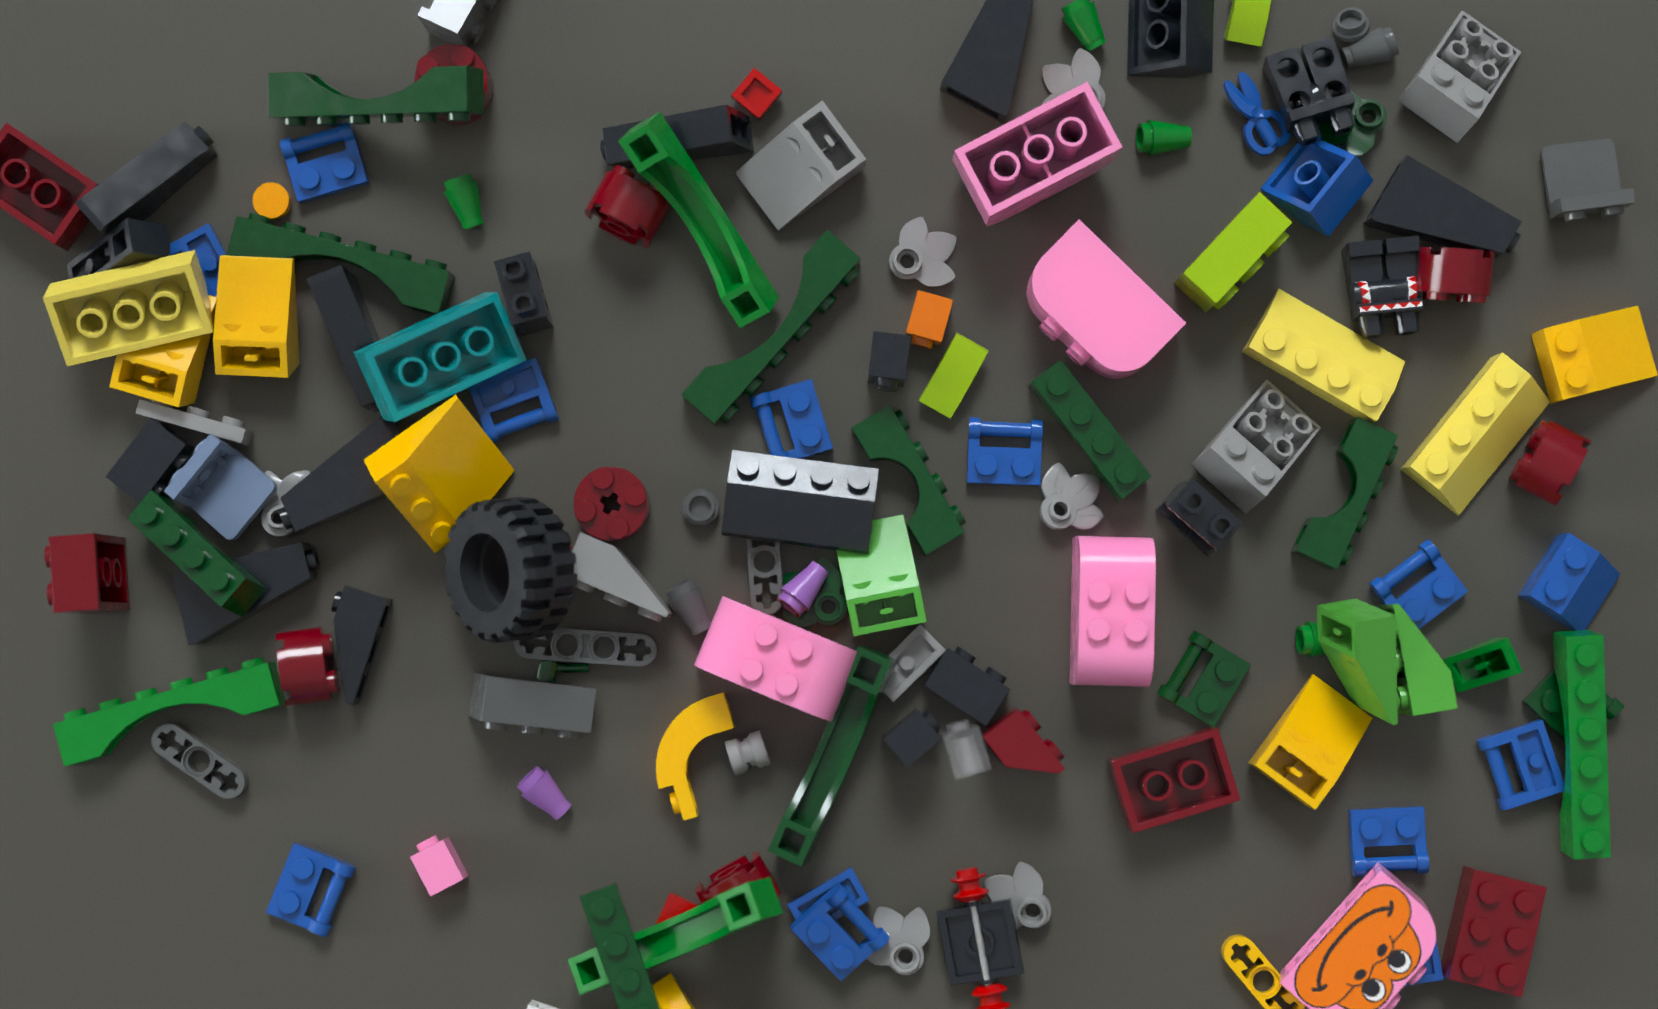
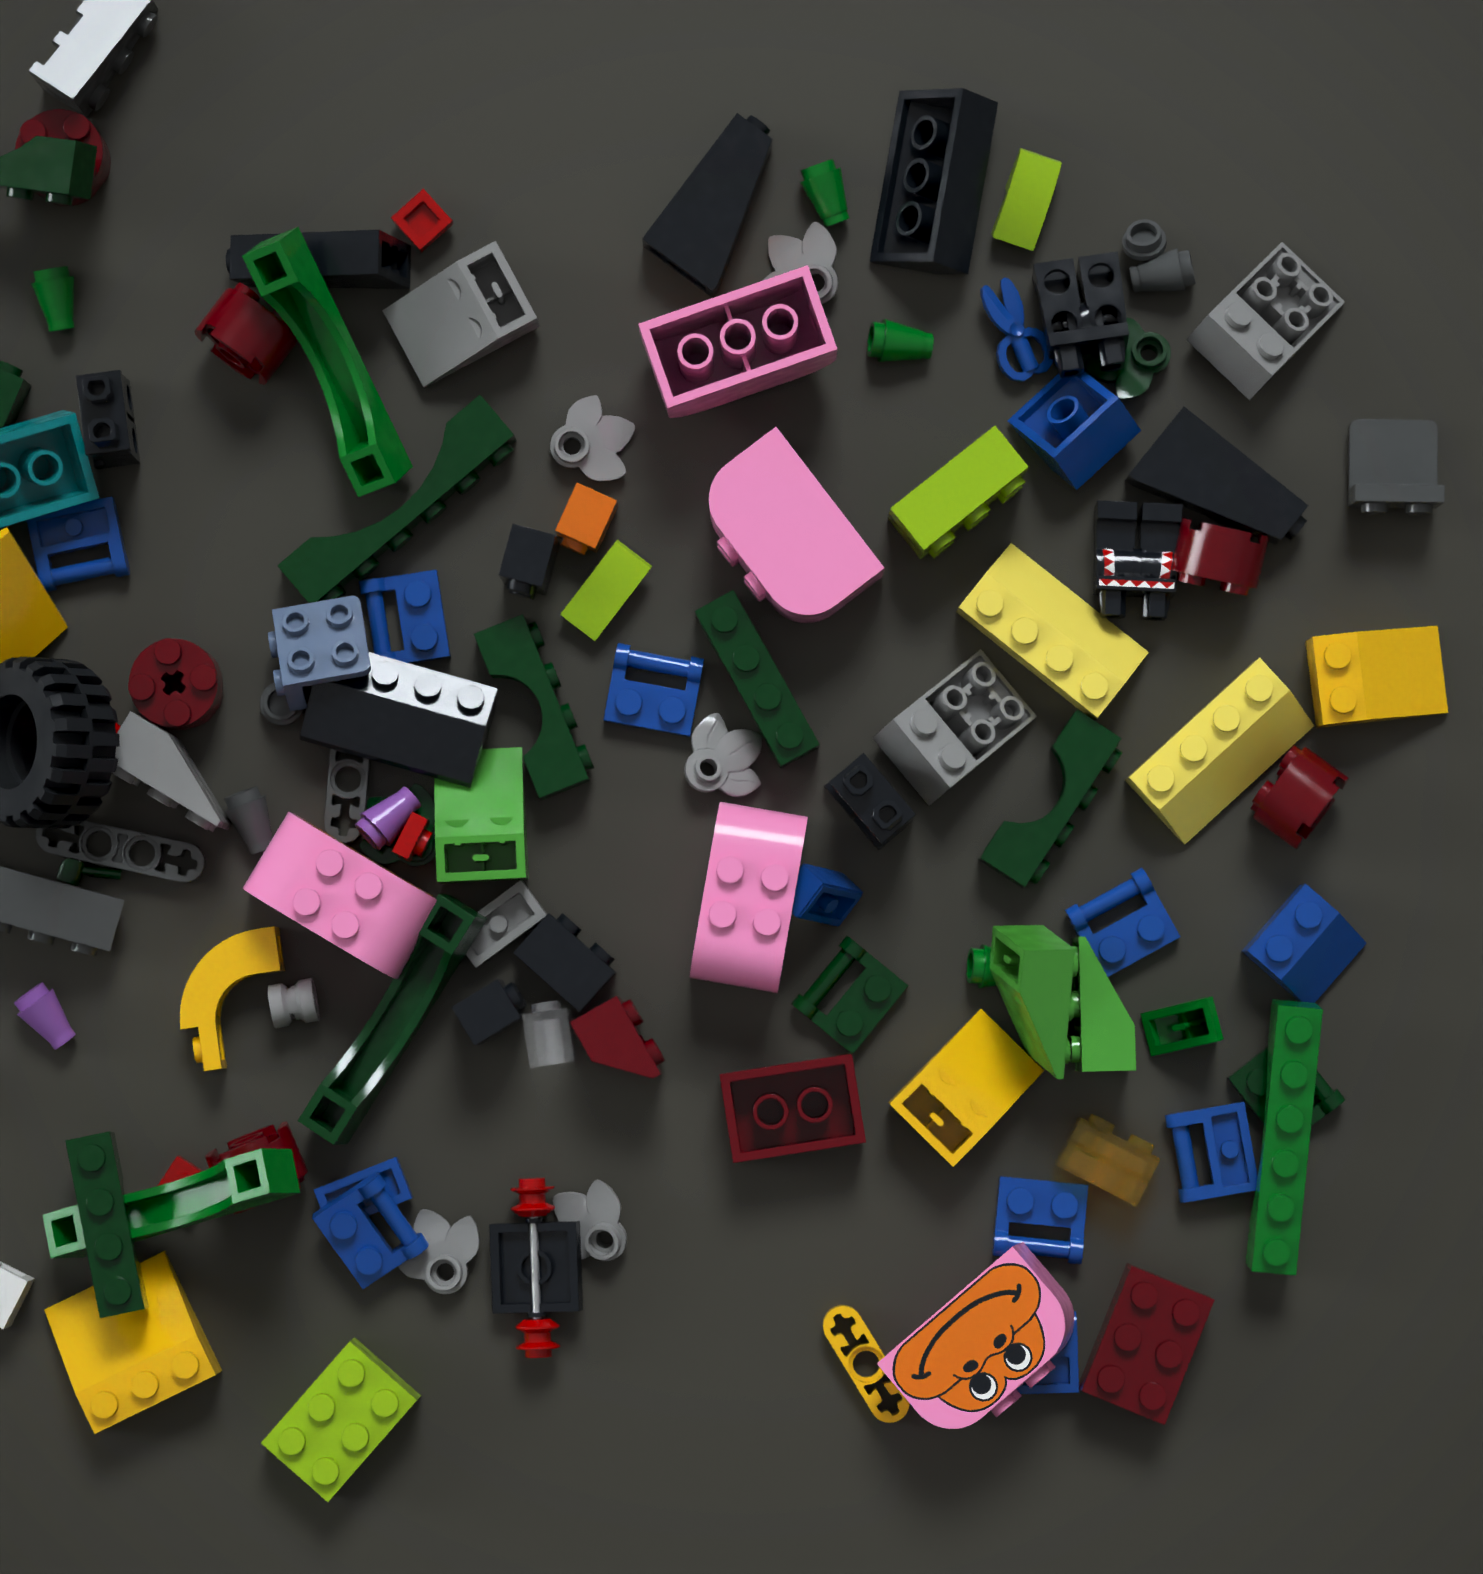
camera: 10 degrees right, 0 degrees up
(725, 455) = (317, 646): none -> sand blue bracket
(828, 602) = (413, 837): none -> red plate
(1174, 600) = (824, 895): none -> blue slope
(1438, 784) = (1107, 1159): none -> clear yellow brick

